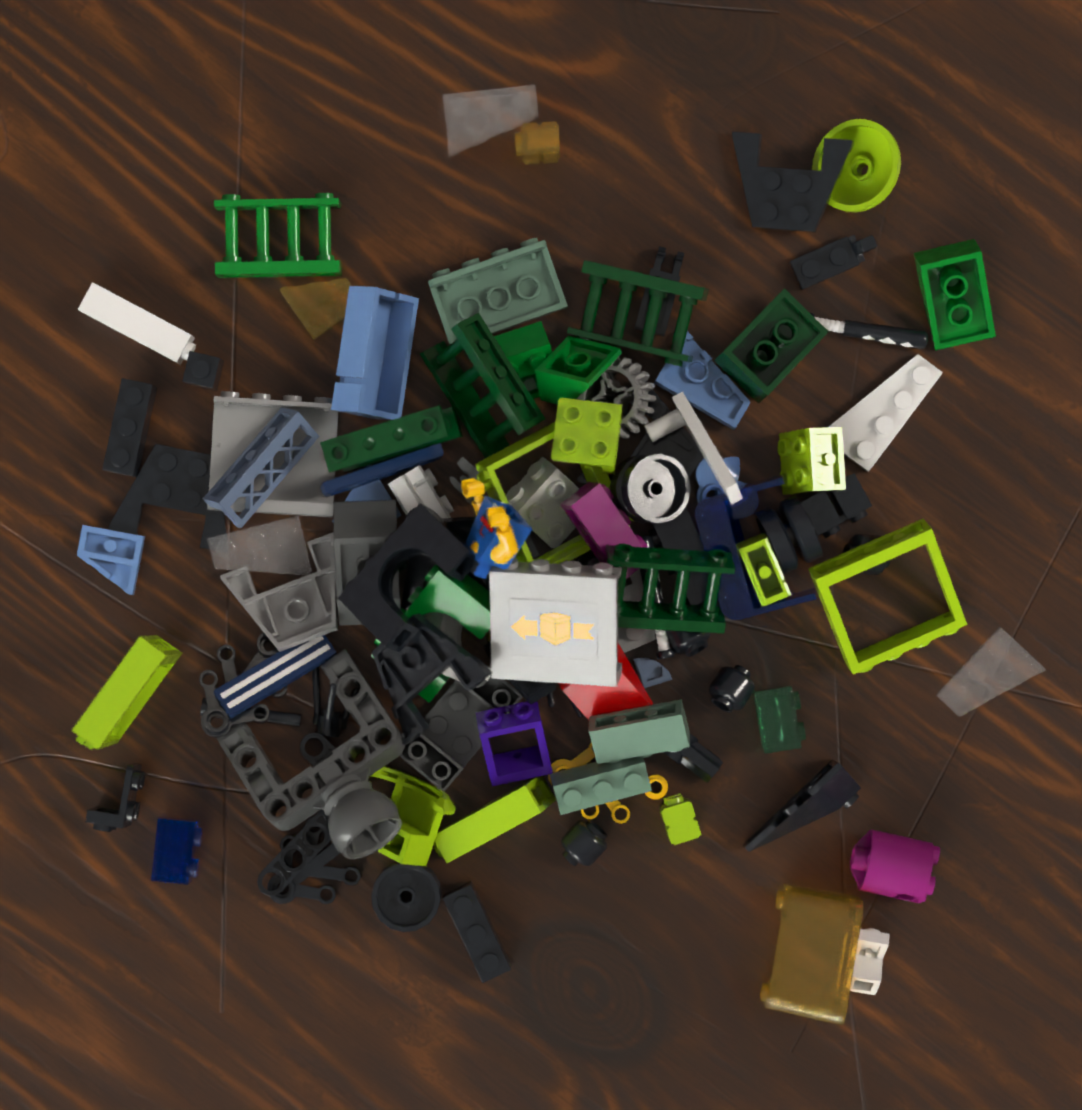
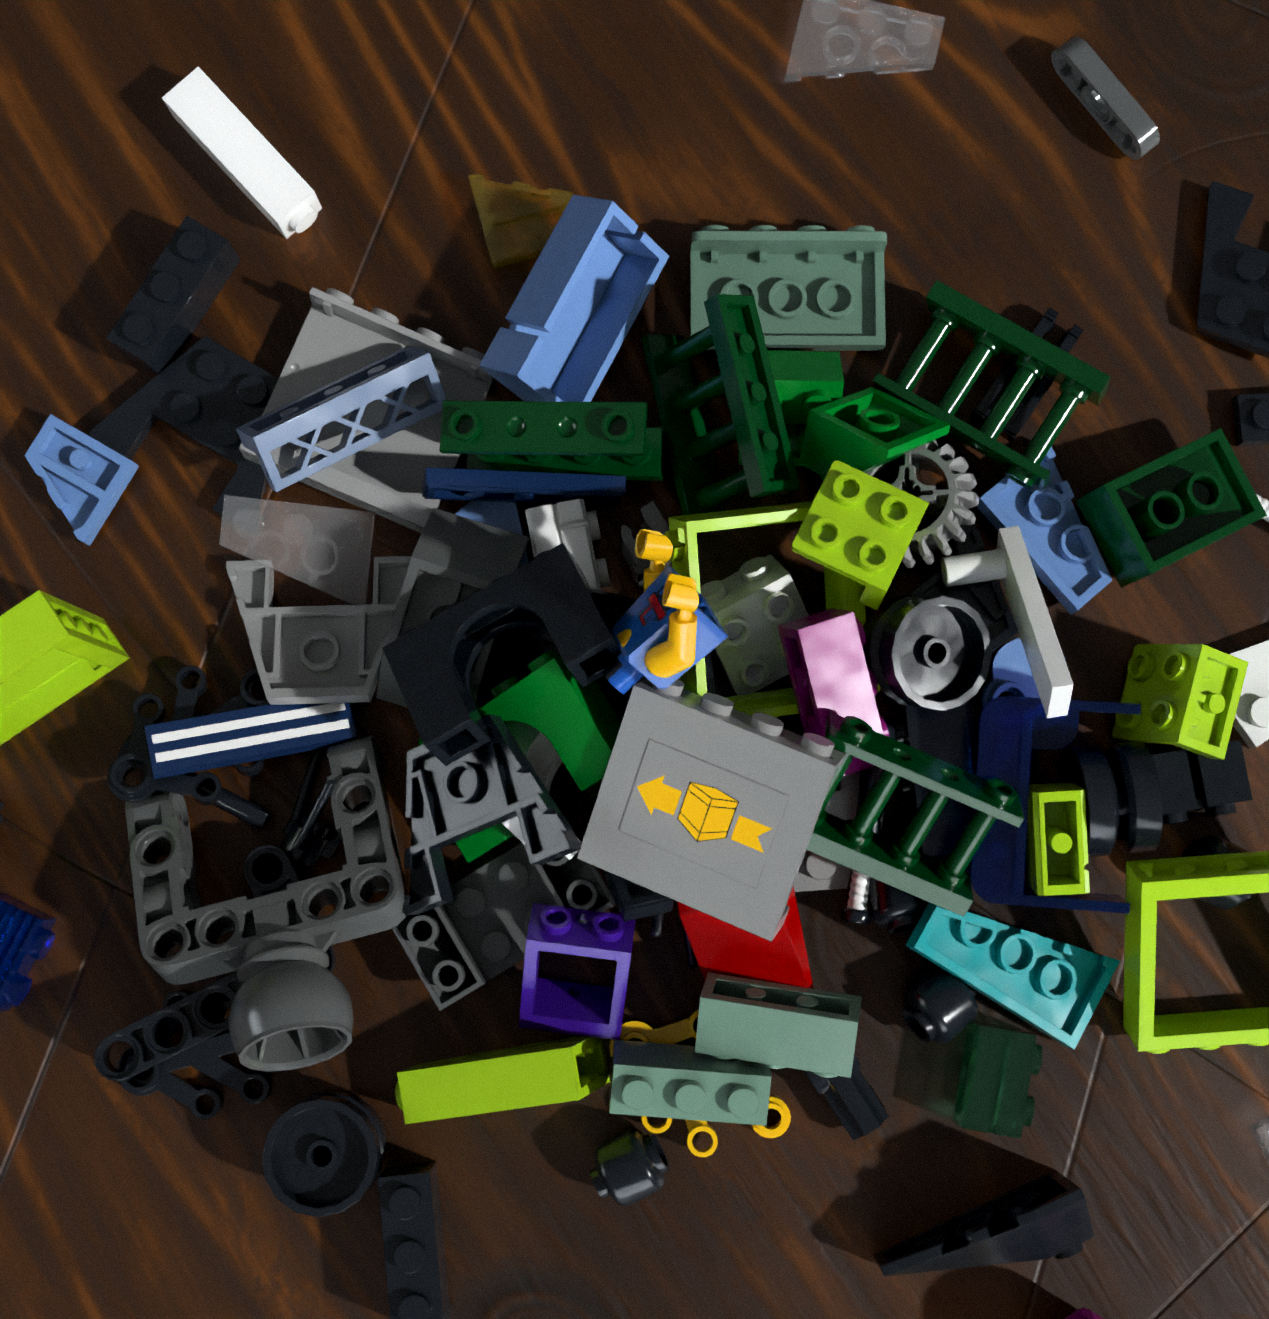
camera: 15 degrees right, 5 degrees down
(203, 370) = (313, 252): black brick -> none
(263, 265) = (503, 148): green fence -> none
(421, 813) = (390, 1030): lime piece -> none
(538, 143) = (926, 91): clear yellow brick -> none
(650, 102) = (1105, 98): none -> dark grey beam
(651, 672) = (823, 935): sand blue tile -> none
(679, 819) = (792, 1186): lime brick -> none
(778, 653) = (1025, 973): none -> teal wing

